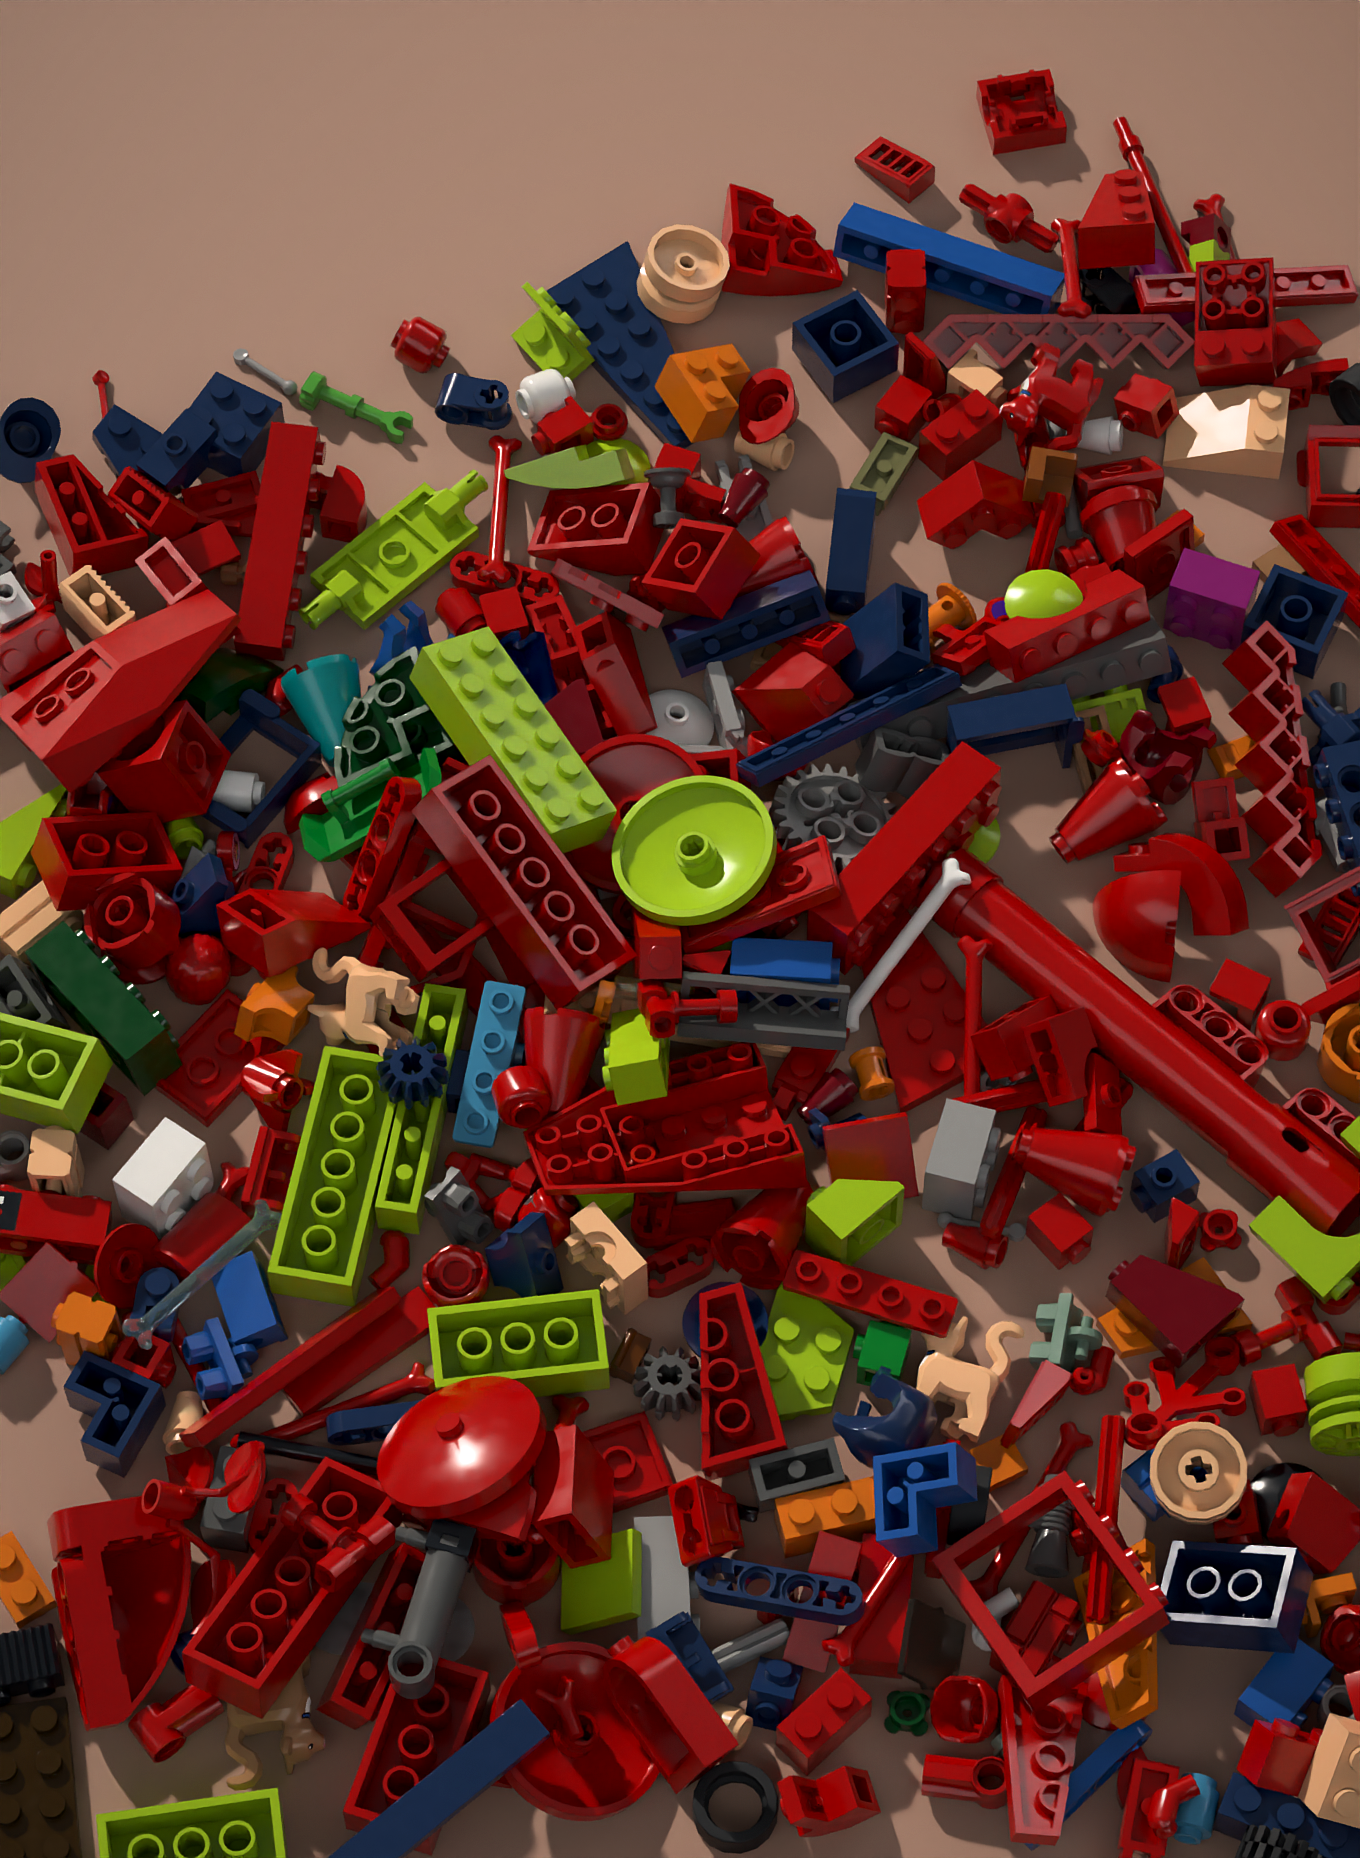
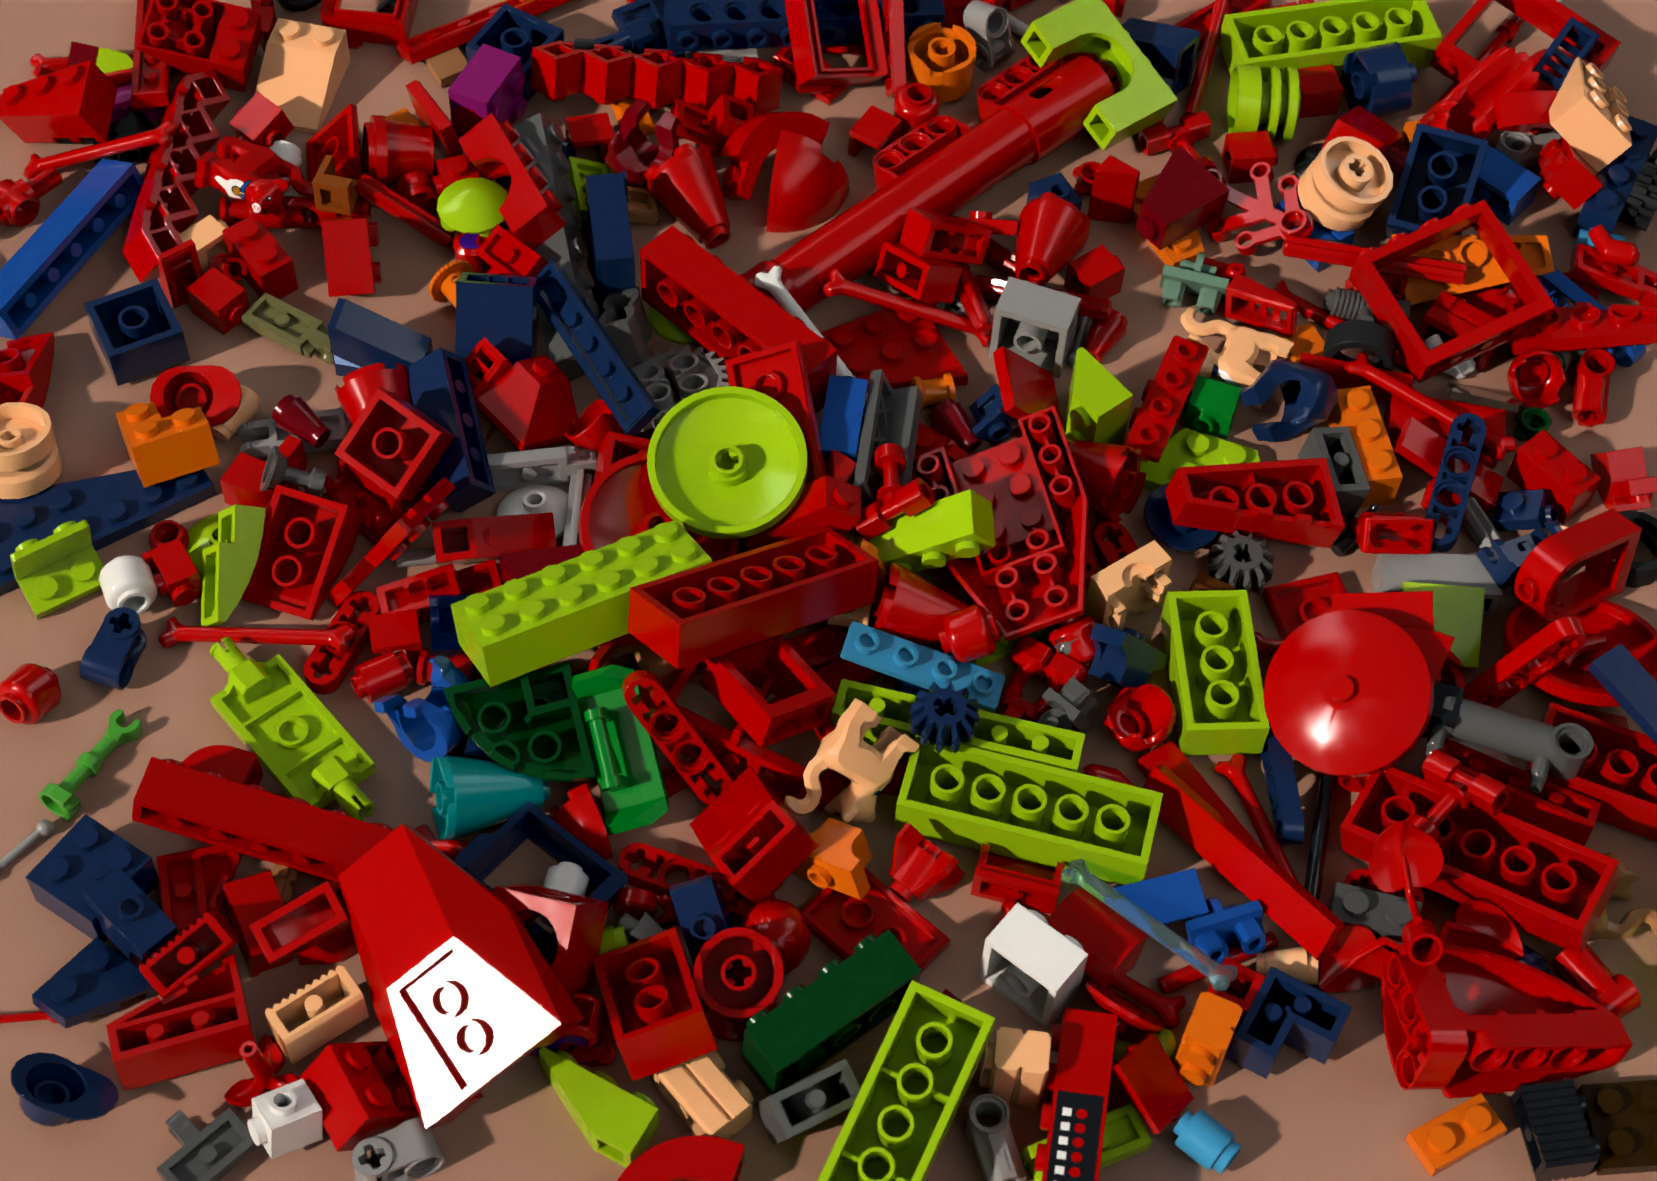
camera: 90 degrees left, 5 degrees down
(151, 1290) = (1149, 982): dark blue plate -> none
(905, 290) = (86, 271): red brick -> none
(911, 1488) = (1375, 361): blue brick -> none
(1099, 747) = (636, 183): red plate -> none

